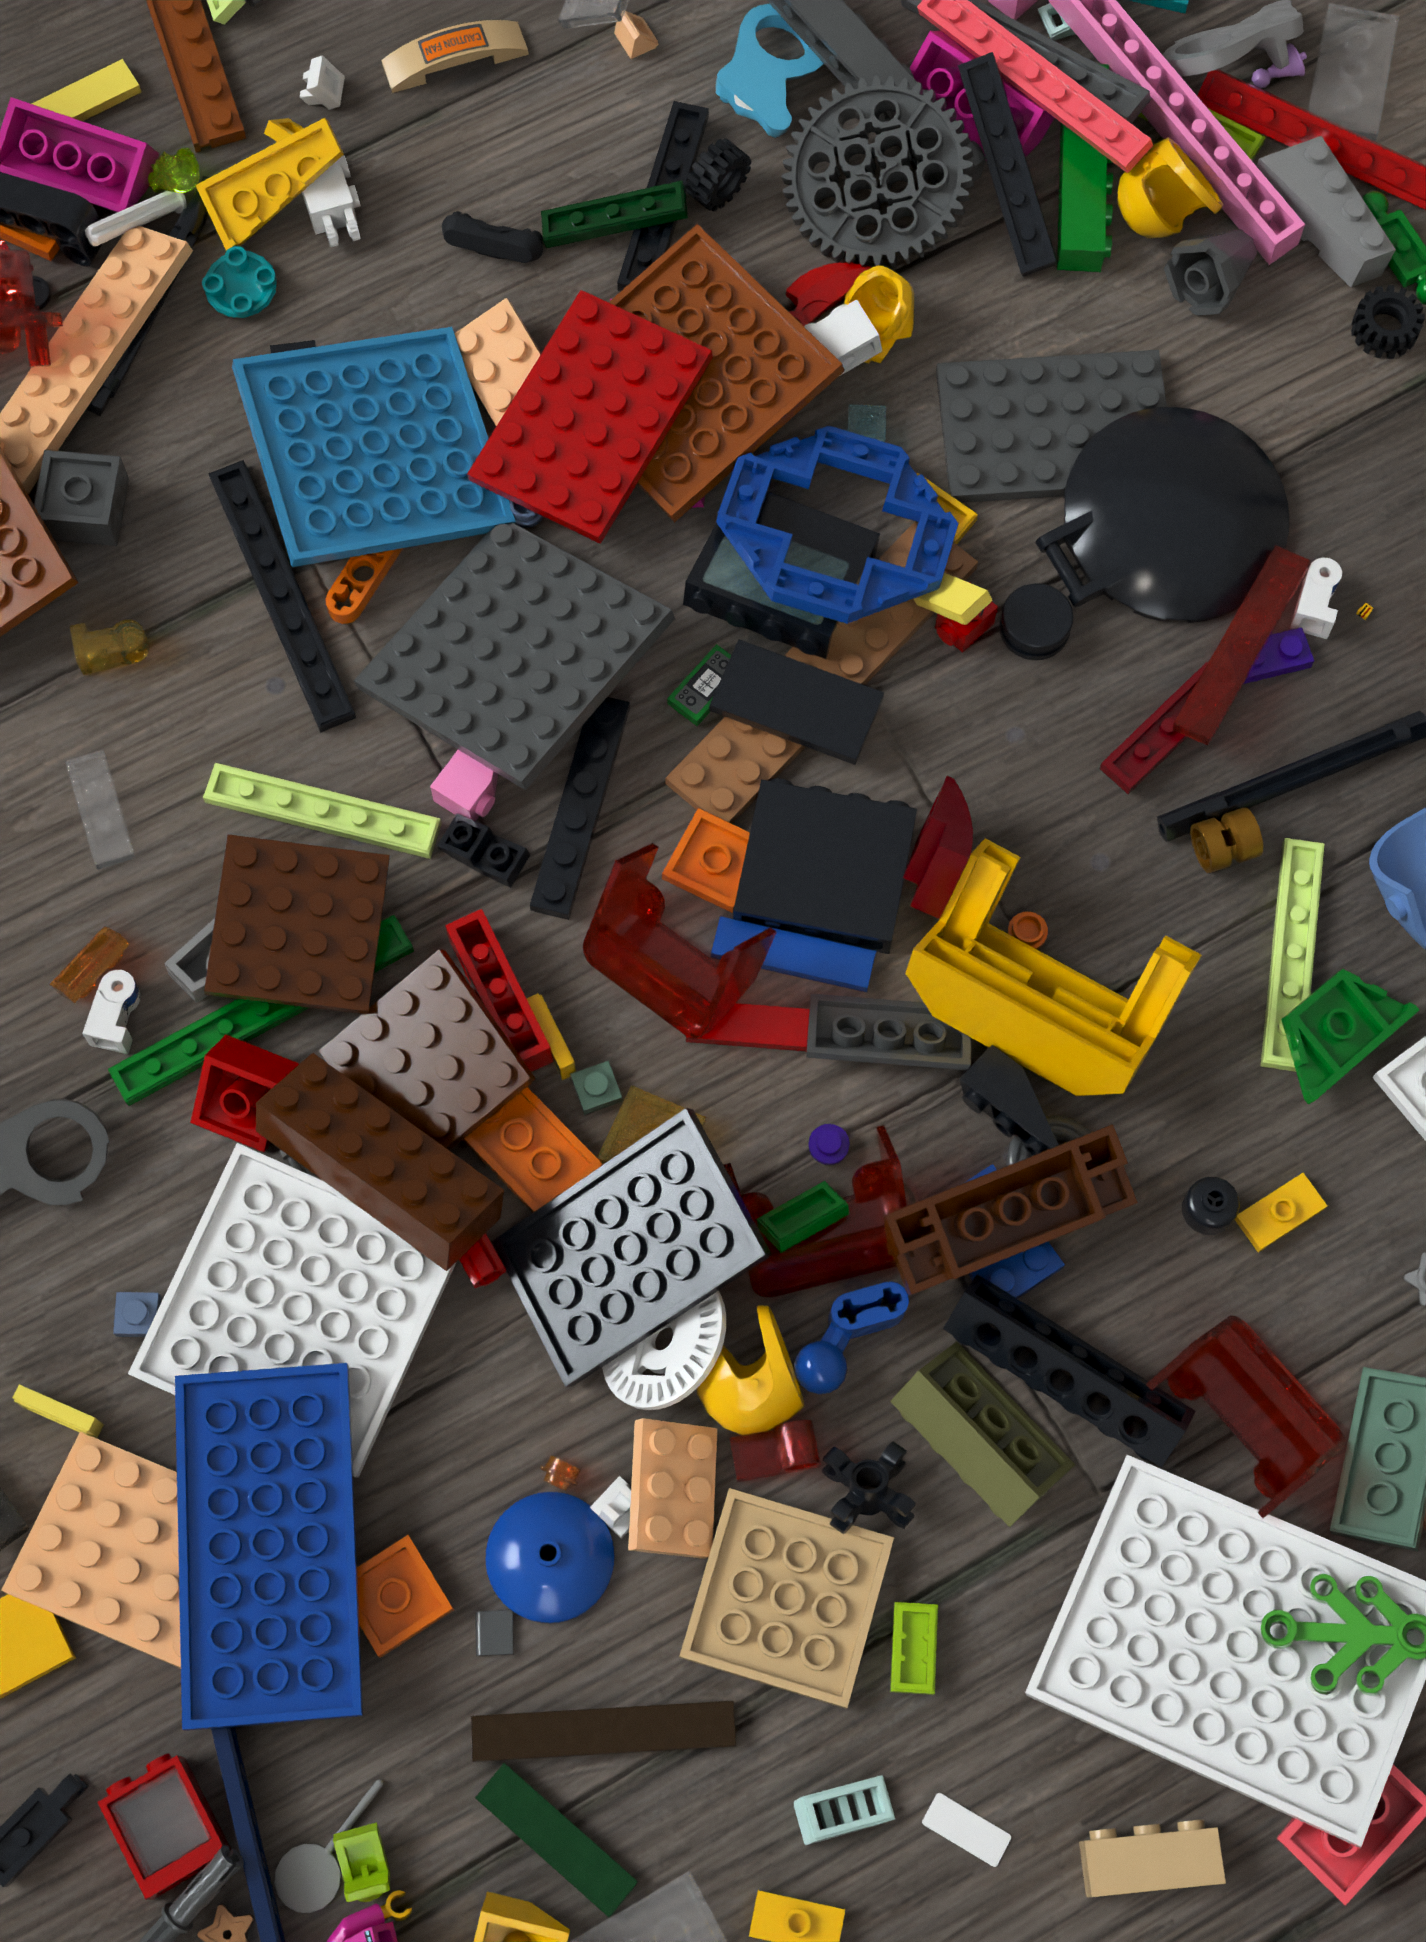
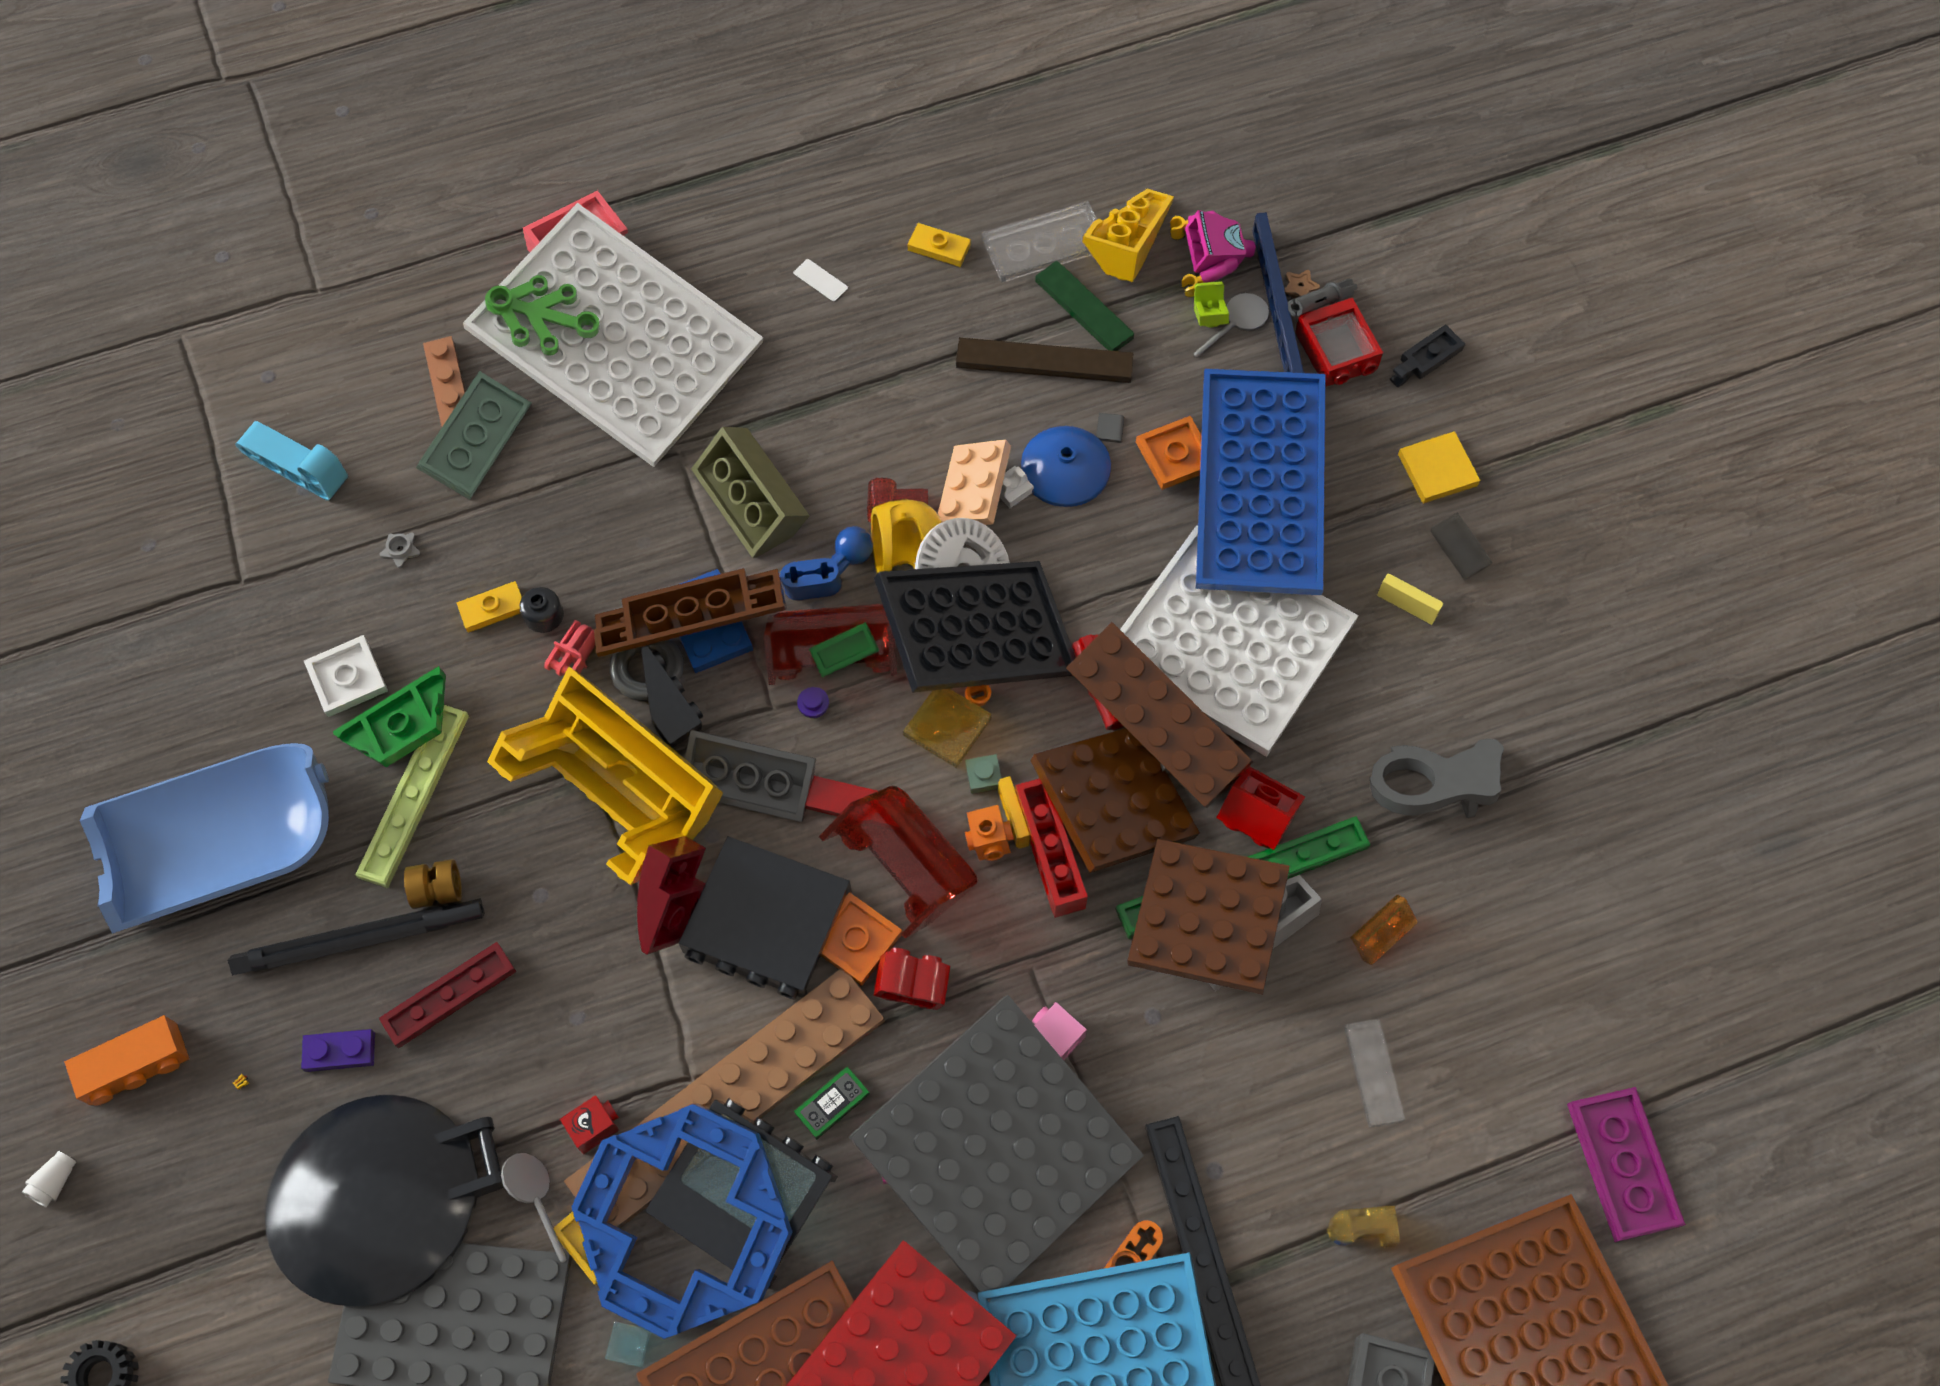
camera: 170 degrees left, 5 degrees down
(107, 1549) = (1374, 509): light nougat plate -> none
(110, 1012) = (1367, 889): white leg -> none
(135, 1313) = (1351, 662): sand blue plate -> none
(322, 810) = (1182, 1041): yellowish green tile -> none
(483, 851) = (1047, 980): black slope -> none
(532, 1150) = (1035, 721): orange plate -> none
(560, 1473) = (1050, 511): clear orange plate -> none
(579, 809) = (968, 987): black plate -> none
(579, 1011) = (988, 833): none -> orange brick
(639, 817) = (912, 979): none -> red brick
(787, 1598) = (907, 415): tan plate -> none
(796, 701) = (757, 1060): black tile -> none
(801, 955) = (809, 851): blue tile -> none
(808, 1821) = (906, 304): light aqua slope -> none
(864, 1501) = (849, 454): black pin -> none
(914, 1648) = (829, 374): lime plate -> none
(955, 599) = (592, 1119): light yellow tile -> none
(1018, 550) = (528, 1182): none -> light grey piece
(1029, 929) = (609, 841): orange plate -> none
(1036, 621) = (529, 1112): black head -> none
(1090, 1369) = (676, 513): black brick -> none
(1151, 1859) = (709, 240): tan brick -> none
(1154, 1157) = (574, 648): none -> coral arm
(1241, 645) = (357, 1053): clear red tile -> none
(1259, 1405) = (544, 474): clear red windscreen -> none
(1314, 596) = (278, 1095): white leg -> none

